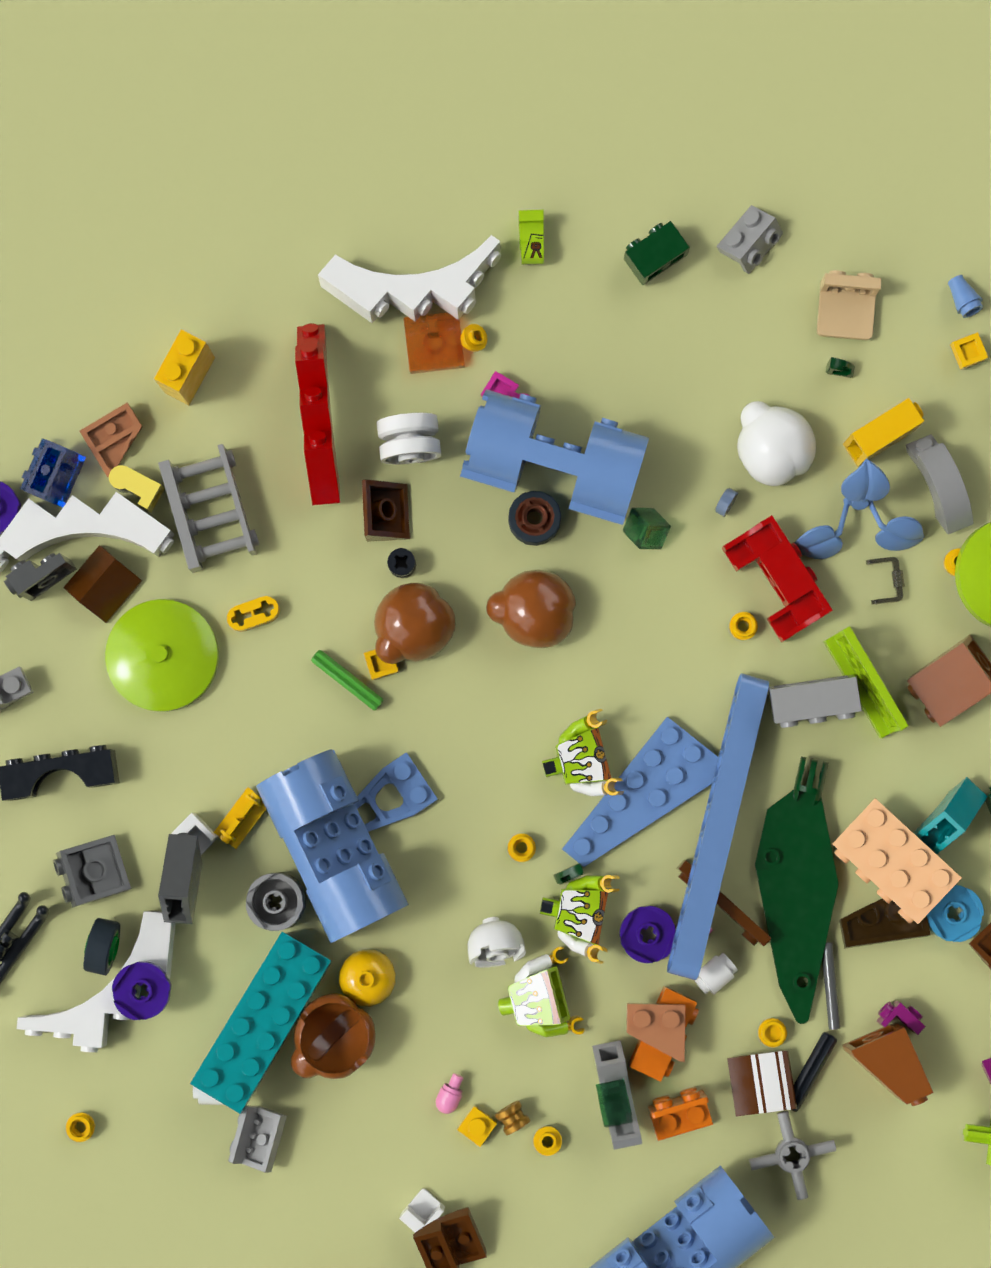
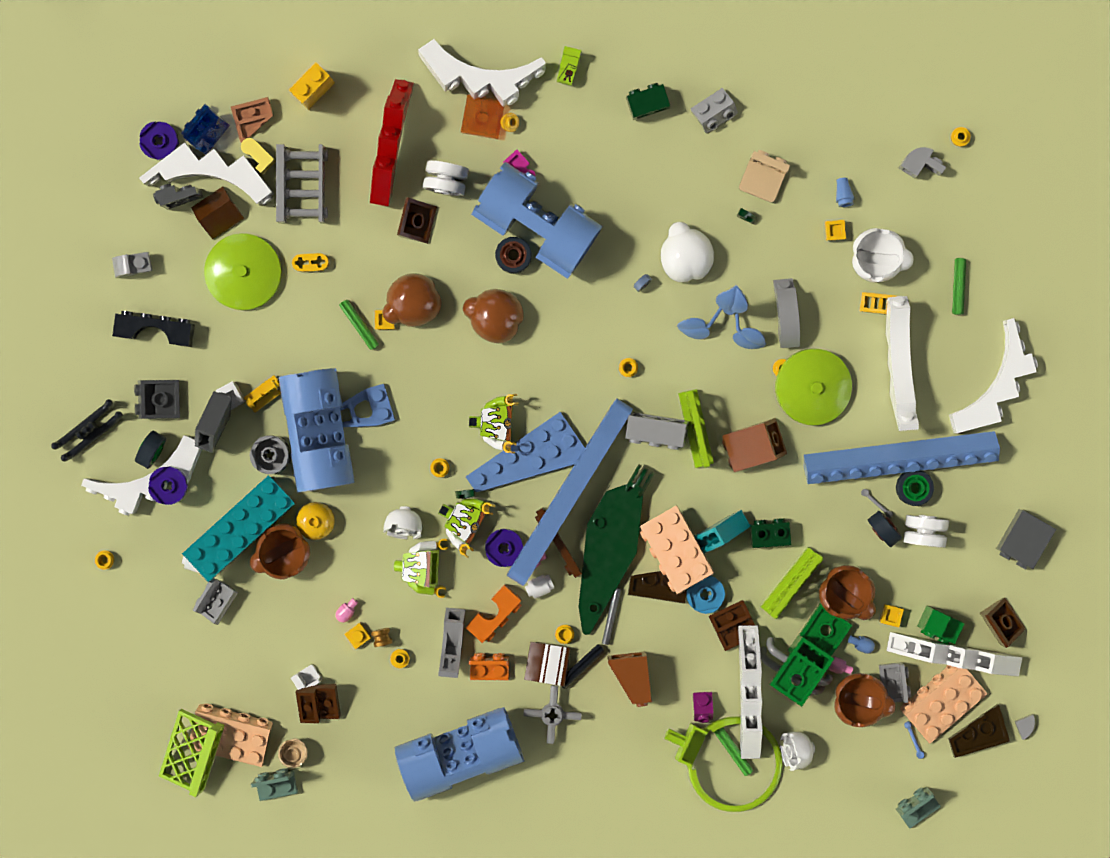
camera: 15 degrees right, 5 degrees up
(405, 567) = (419, 261): black wheel -> none
(614, 1103) = (448, 647): clear green panel -> none
(646, 528) = (584, 284): clear green panel -> none
(658, 1026) = (491, 608): nougat wing -> none
(785, 573) = (666, 341): red bracket -> none
(884, 431) = (760, 268): yellow brick -> none
(897, 577) = (739, 366): clear smoke piece -> none
(908, 1016) = (654, 650): magenta bracket -> none

